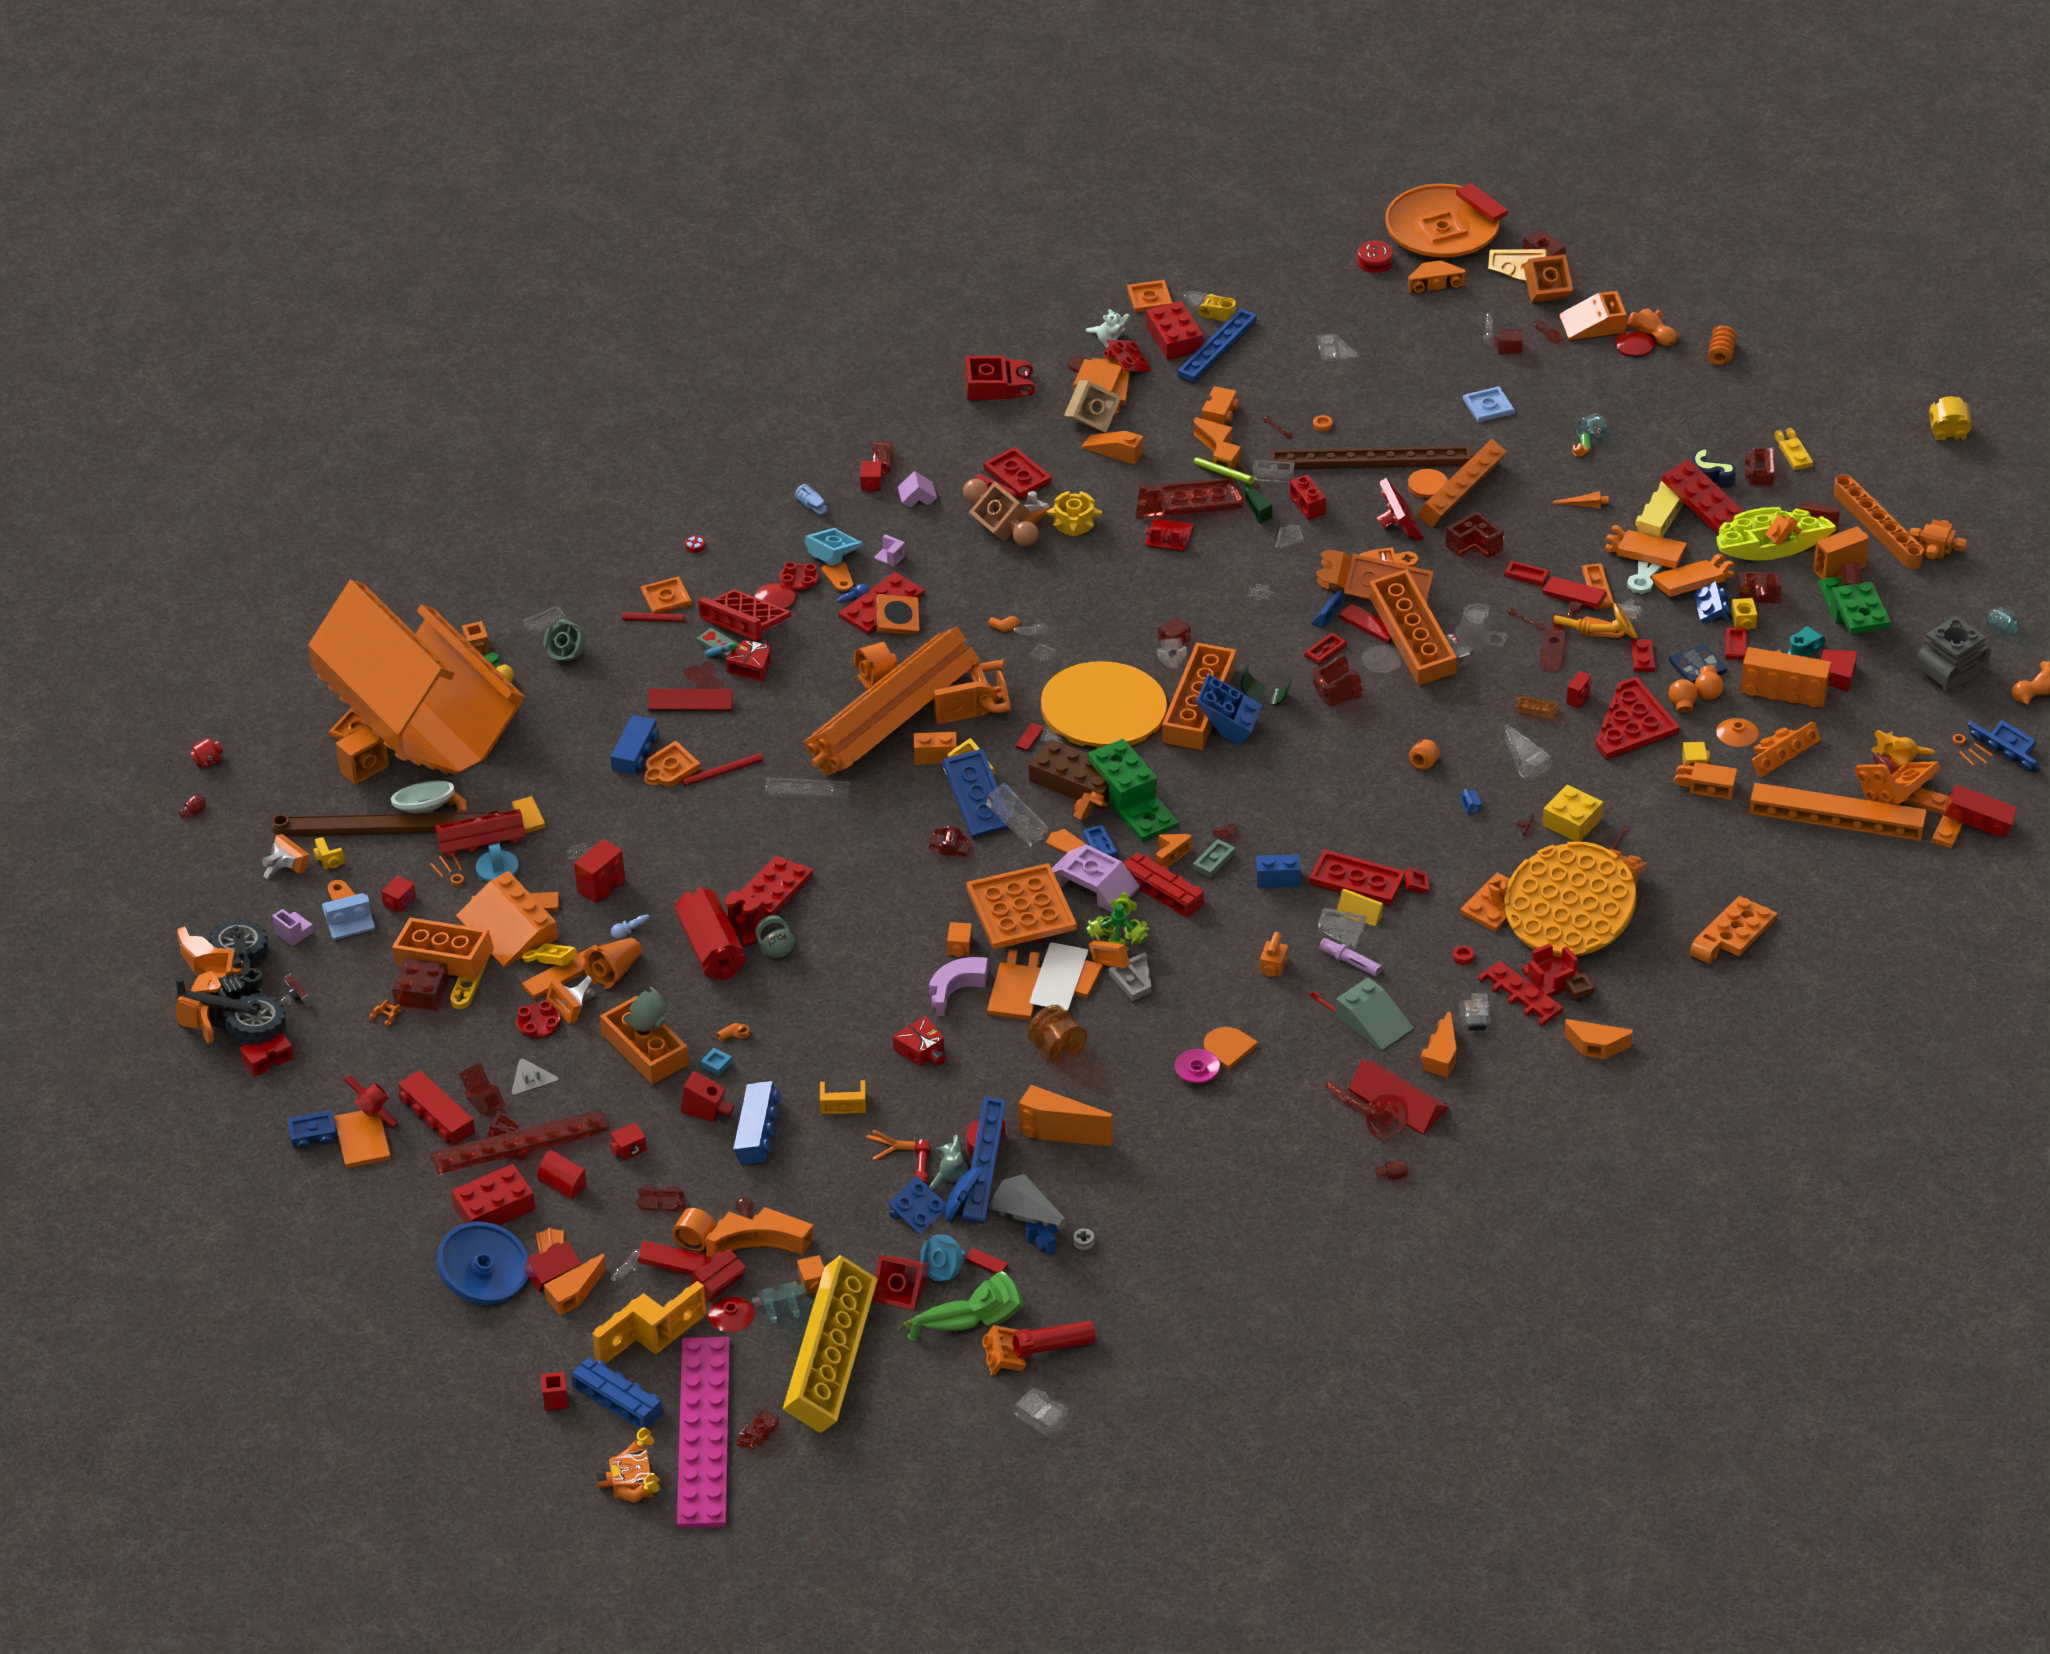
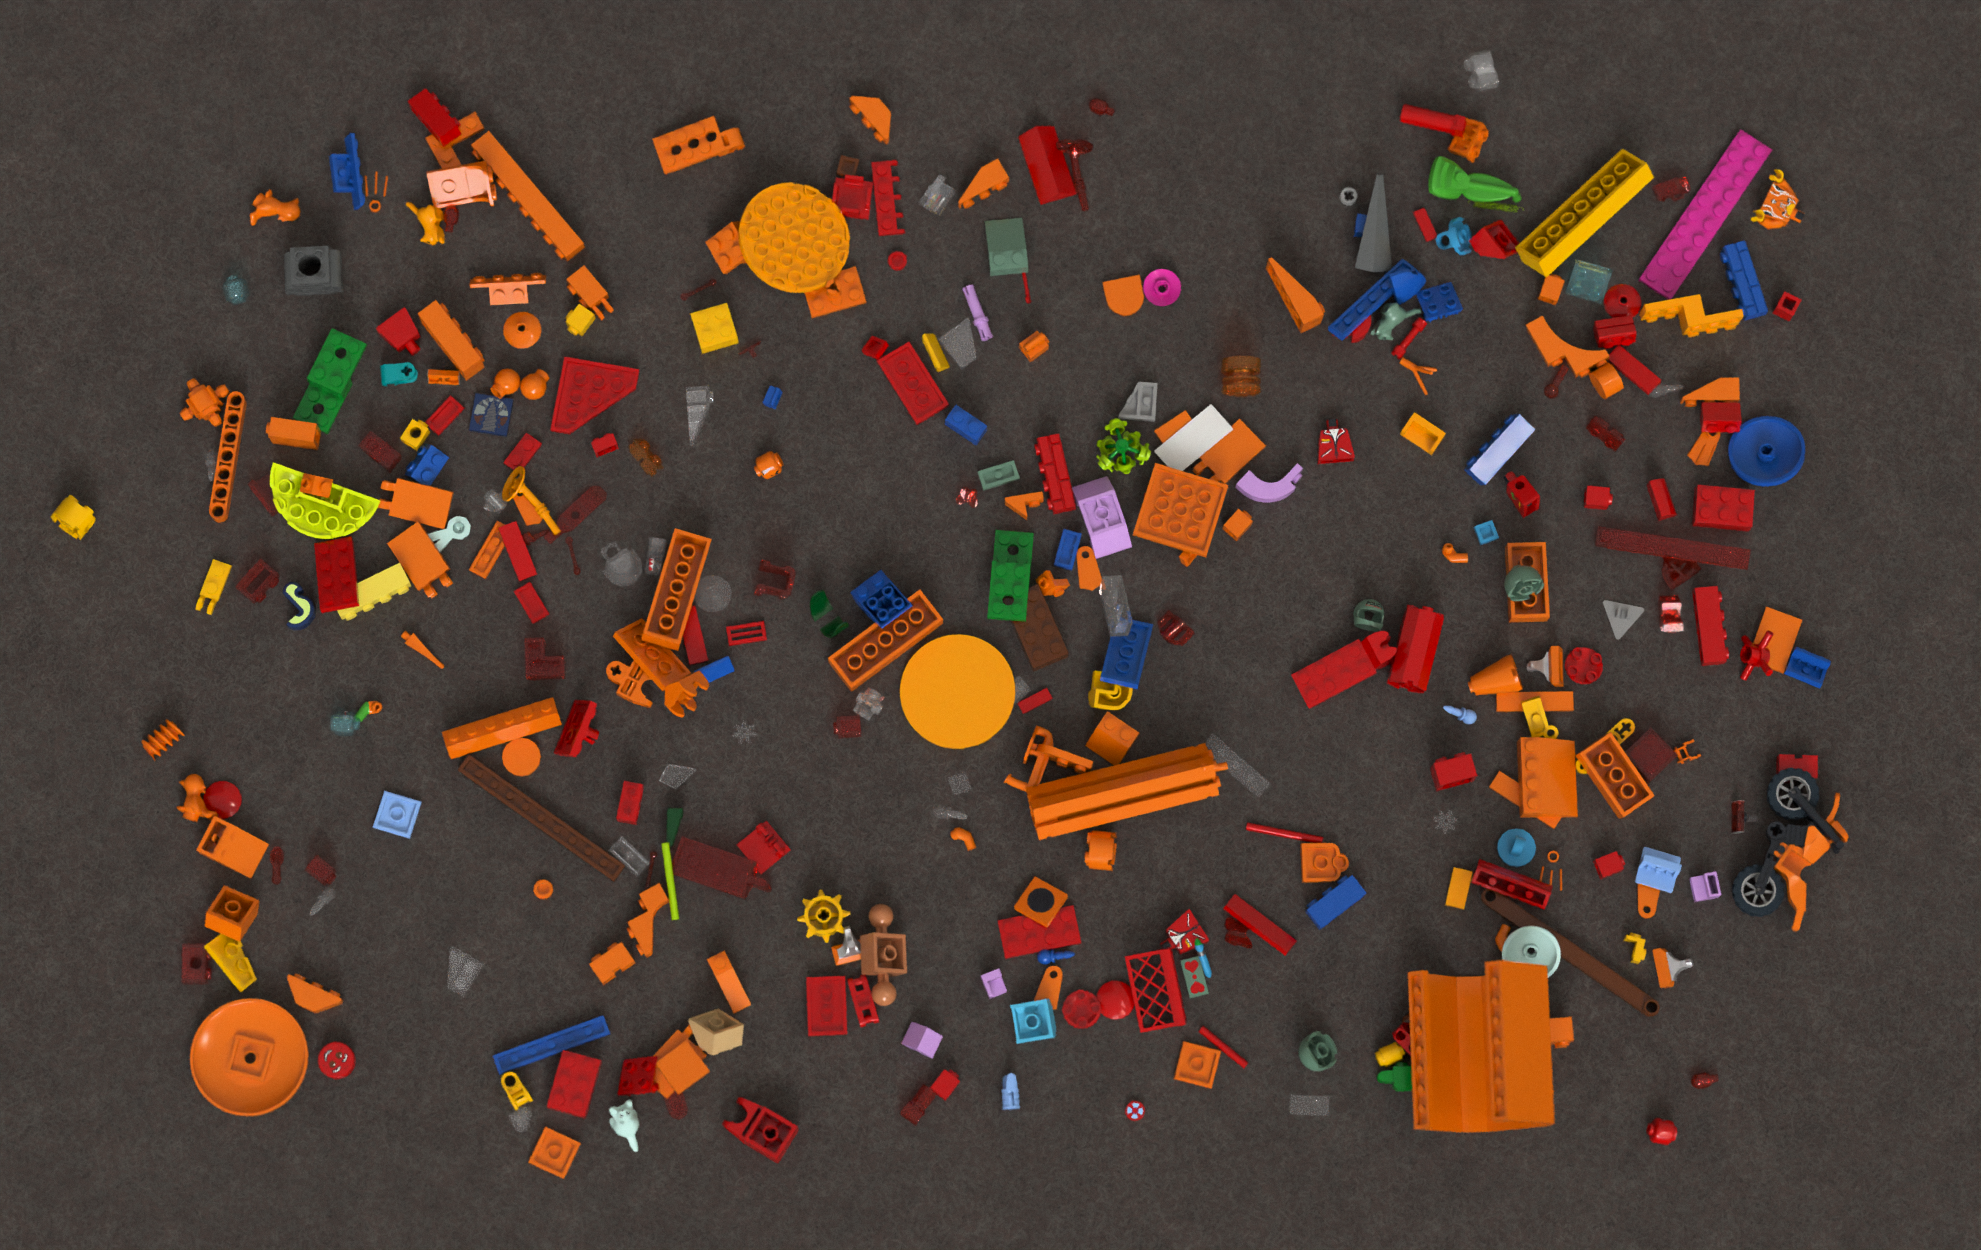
camera: 150 degrees left, 35 degrees up
(476, 636) = (1379, 1108): orange brick -> none
(1109, 954) = (1148, 427): orange tile -> none
(1267, 419) = (581, 928): clear red hinge -> none
(1482, 202) = (203, 1048): red tile -> none
(1849, 573) = (315, 399): clear red piece -> none

